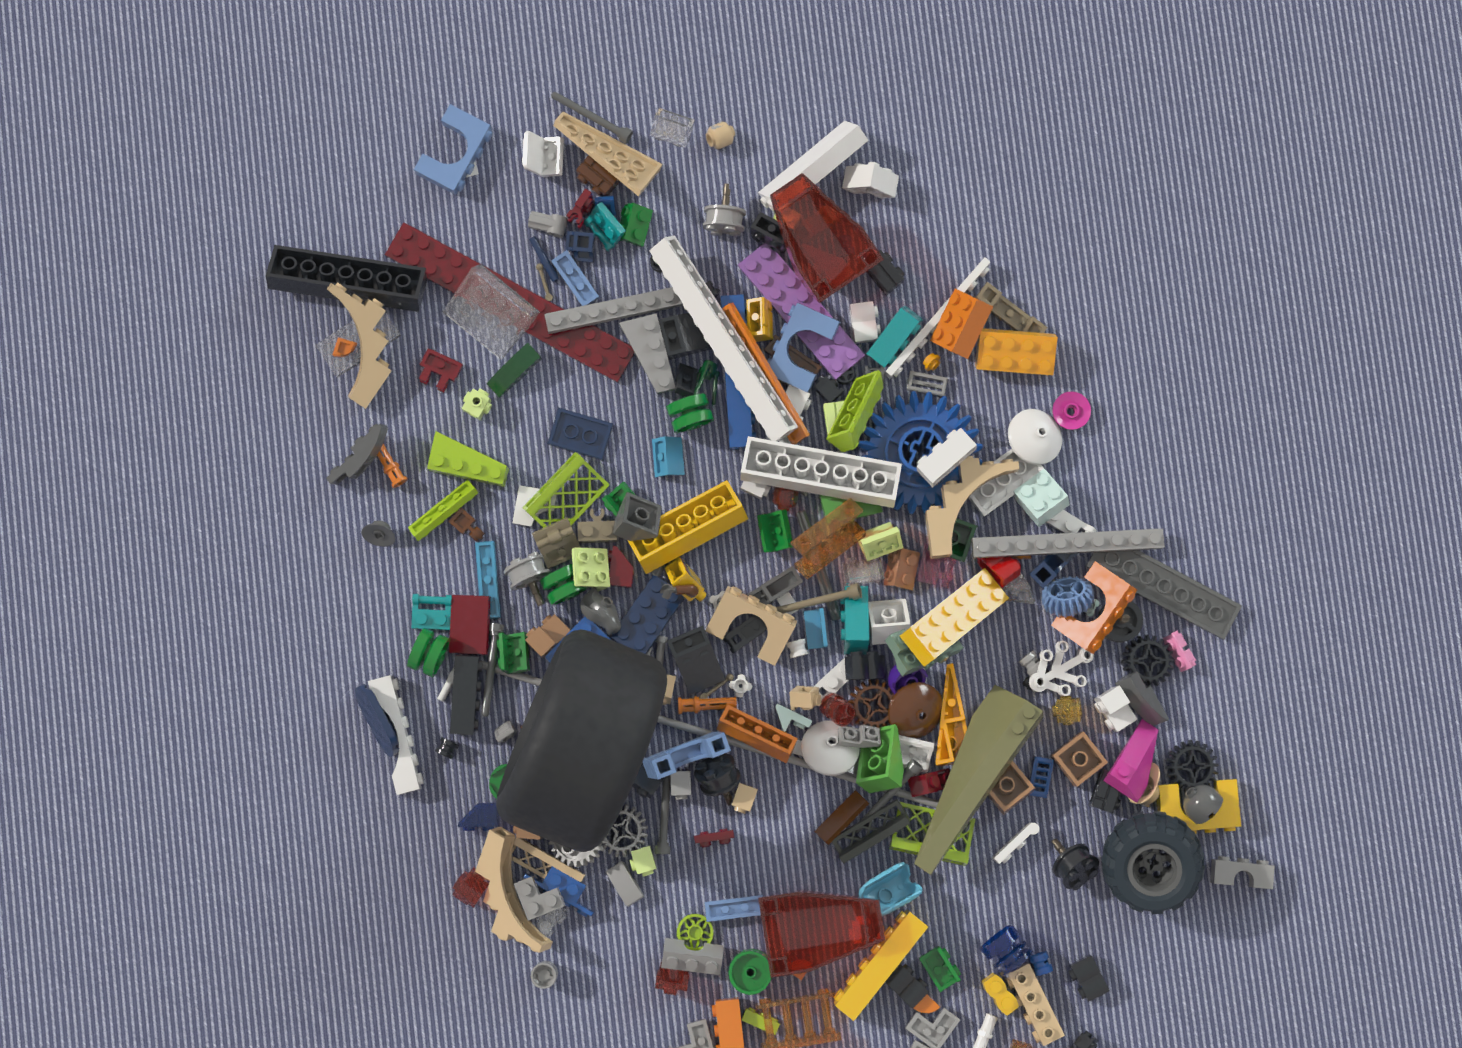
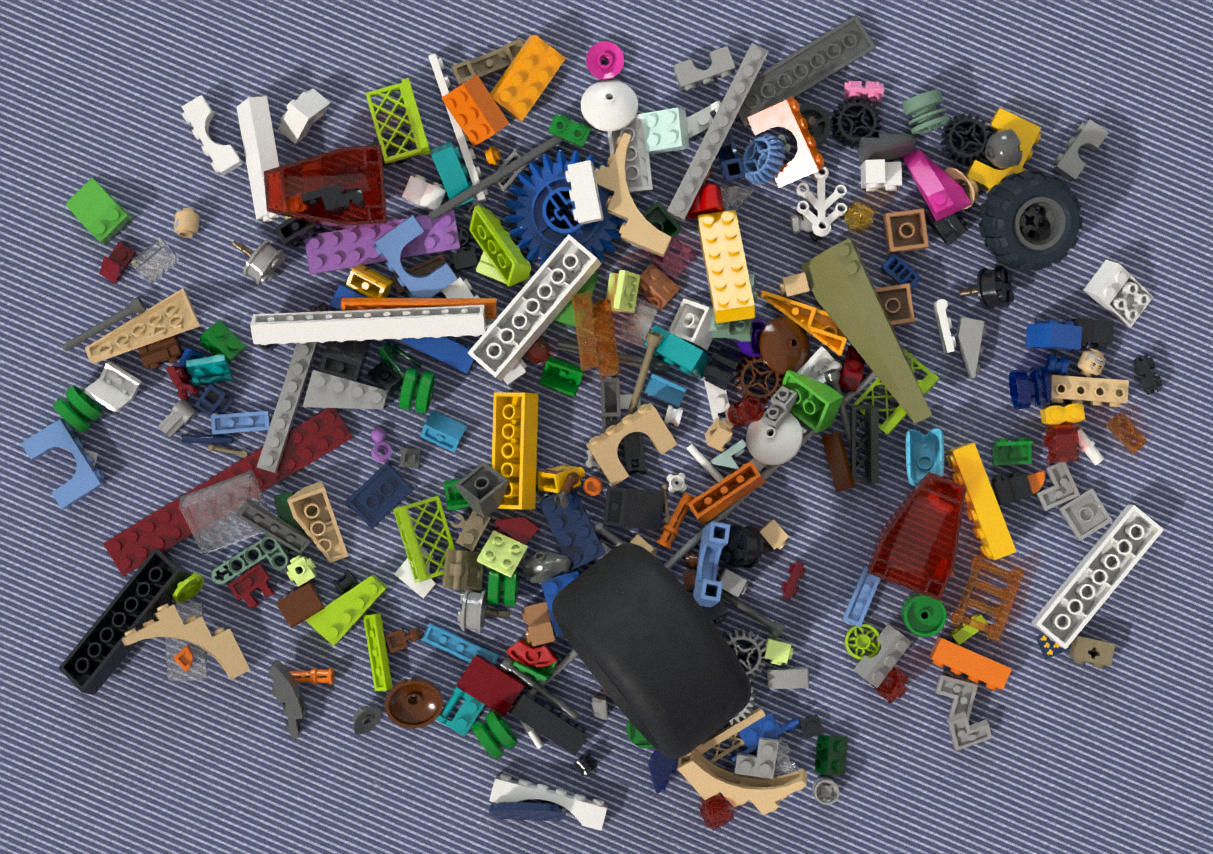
camera: 55 degrees left, 5 degrees up
(406, 316) = (188, 588): none -> lime wheel
(408, 570) = (416, 710): none -> reddish brown dish
(447, 419) = (300, 604): none -> reddish brown slope
(457, 354) = (248, 562): none -> sand green beam
(488, 447) = (345, 581): none -> black bush
(501, 358) = (273, 526): none -> dark grey tile
(507, 135) = (78, 408): none -> green wheel
(516, 646) = (532, 655): none -> red tile
(532, 386) = (315, 515): none -> tan wedge
(578, 962) = (831, 755): none -> dark green bracket
(593, 930) = (811, 726): none -> black plate
(628, 441) = (410, 458): none -> dark grey tile
(631, 403) = (379, 435): none -> medium lavender plate
(651, 97) = (117, 262): none -> dark red slope
(664, 743) = (690, 575): none -> reddish brown plate
(686, 57) = (98, 211): none -> bright green slope
(694, 613) = (592, 486): none -> orange plate
(772, 700) = (705, 463): none -> white piece
(813, 246) = (333, 199): none -> black plate
(819, 94) = (200, 115): none -> white arch
(912, 373) = (494, 178): none -> dark grey tile
(921, 278) = (414, 121): none -> lime fence
(973, 688) = (794, 285): none -> tan brick
(974, 1007) = (1061, 443): none -> clear red brick
(992, 414) = (569, 130): none -> green bracket
(1015, 872) = (969, 337): none -> light grey slope
(1061, 993) = (1091, 362): none -> tan head
(1065, 944) = (1053, 335): none -> blue brick
(1101, 492) = (689, 76): none -> light grey arch
(1137, 982) = (1118, 292): none -> white slope
(1191, 718) = (926, 112): none -> sand green wheel

